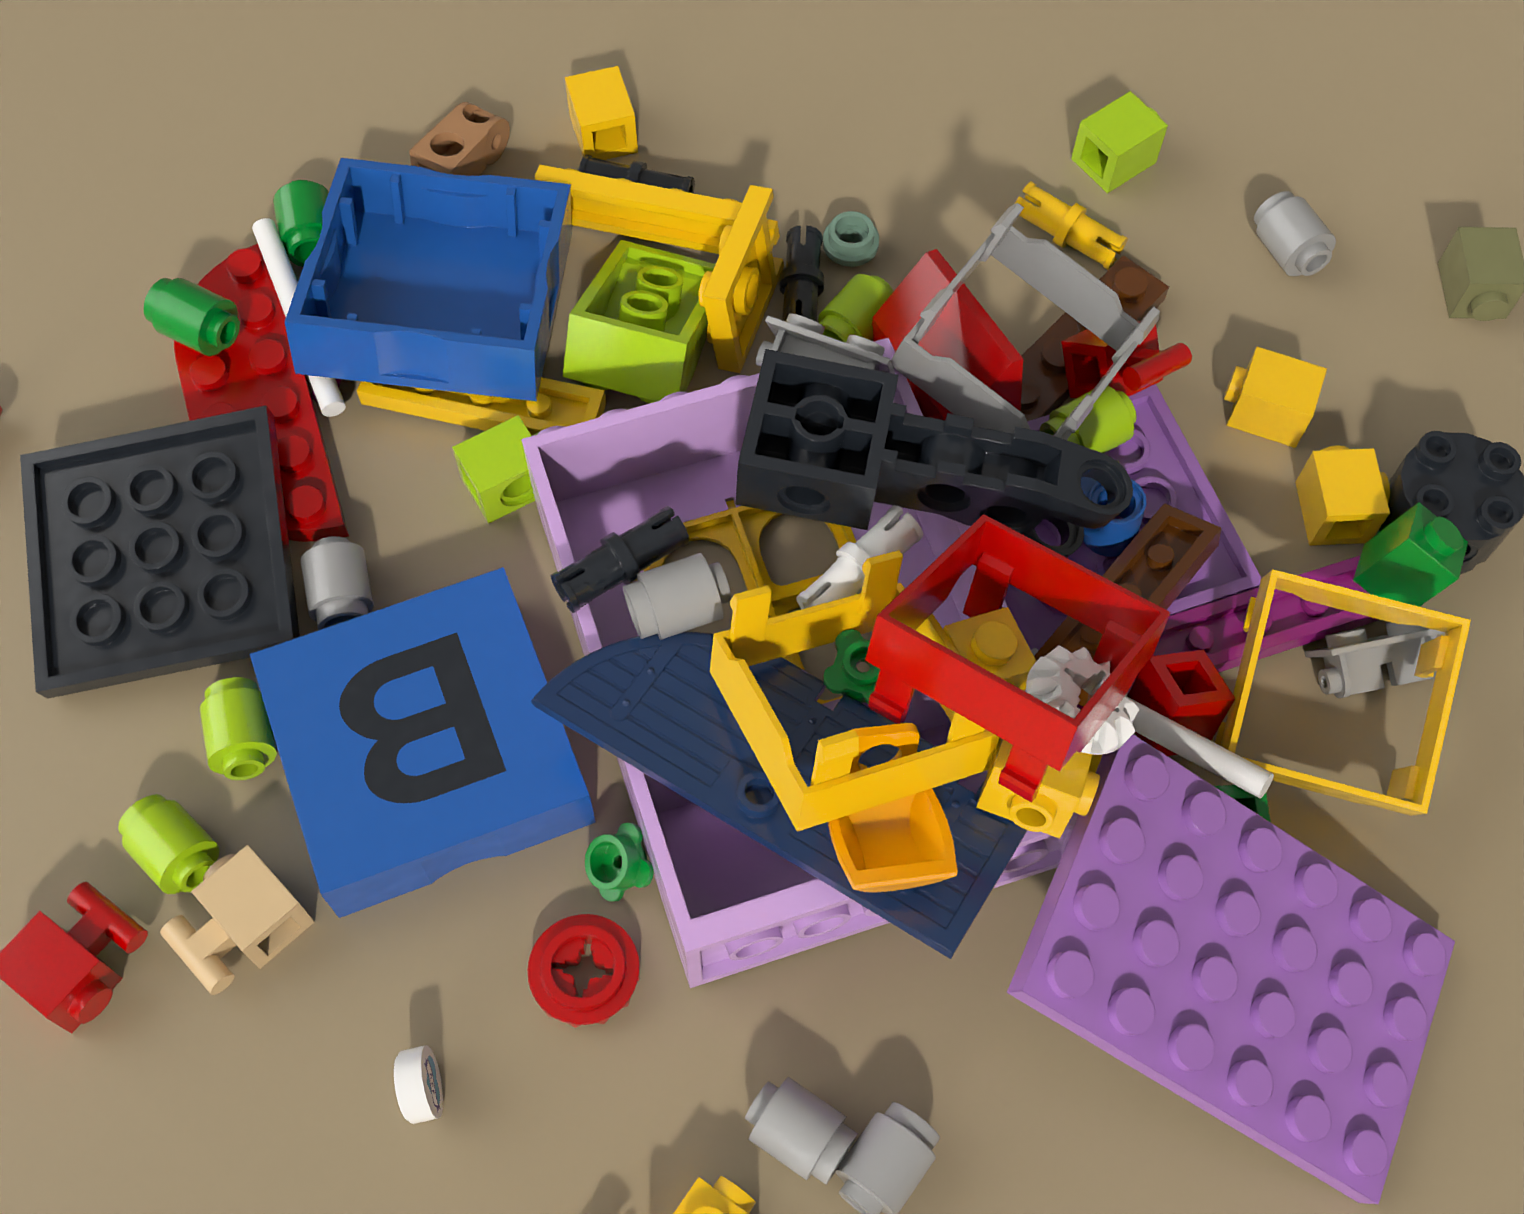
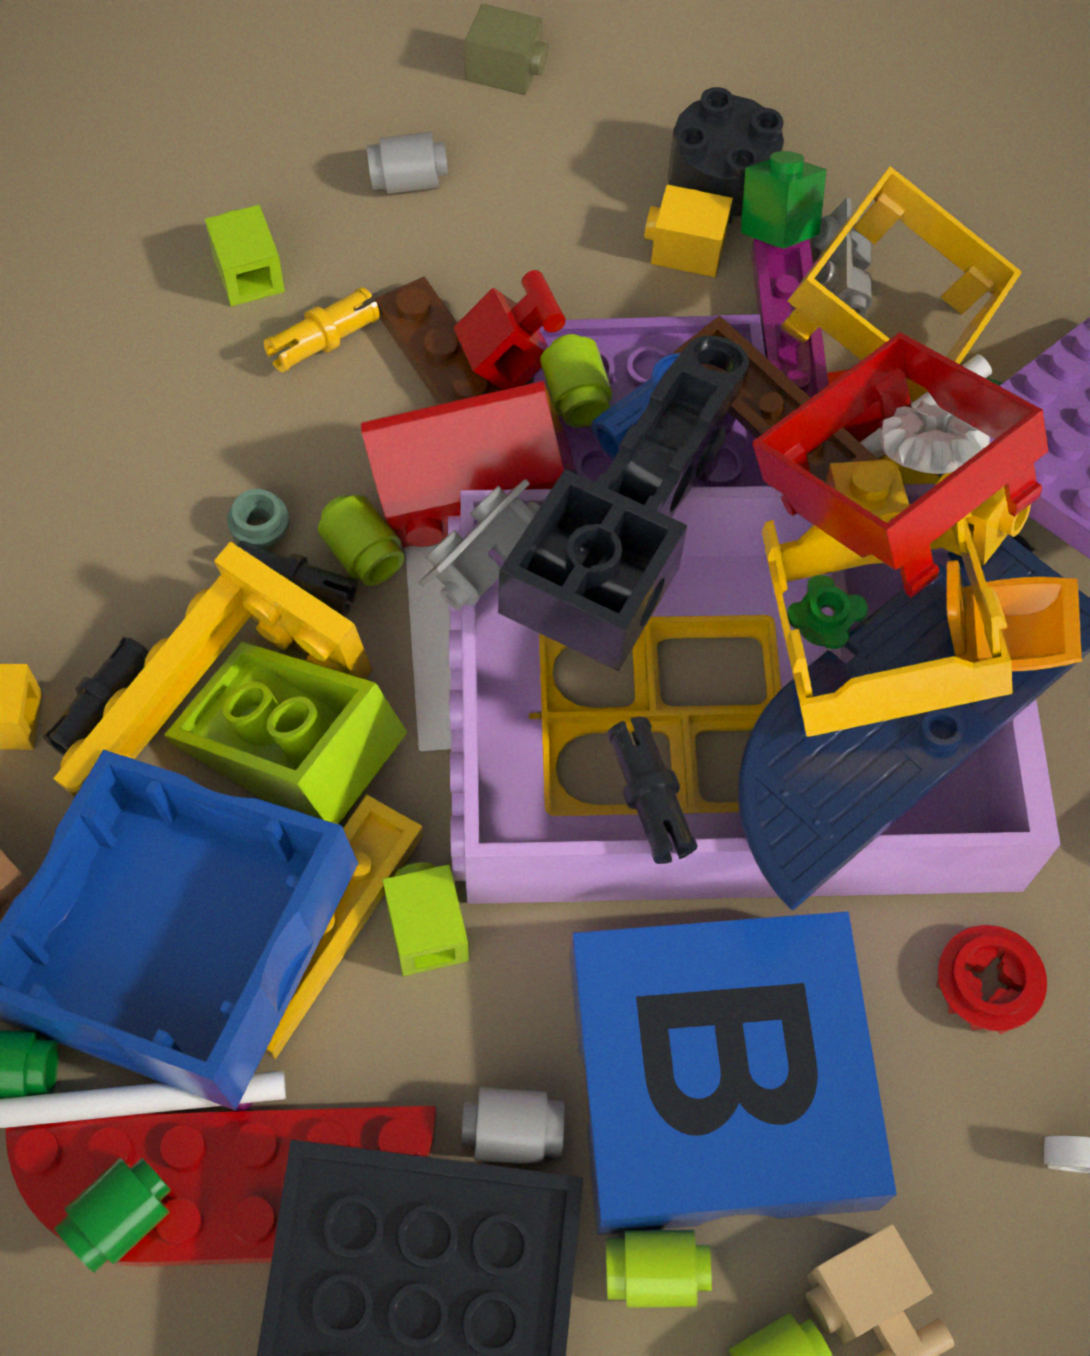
camera: 75 degrees left, 0 degrees up
(604, 862) = (902, 934): green plate -> none
(677, 597) = (717, 746): light grey brick -> none
(846, 574) = (726, 585): white pin -> none
(1058, 280) = (488, 315): light grey piece -> none
(1274, 396) = (575, 239): yellow brick -> none

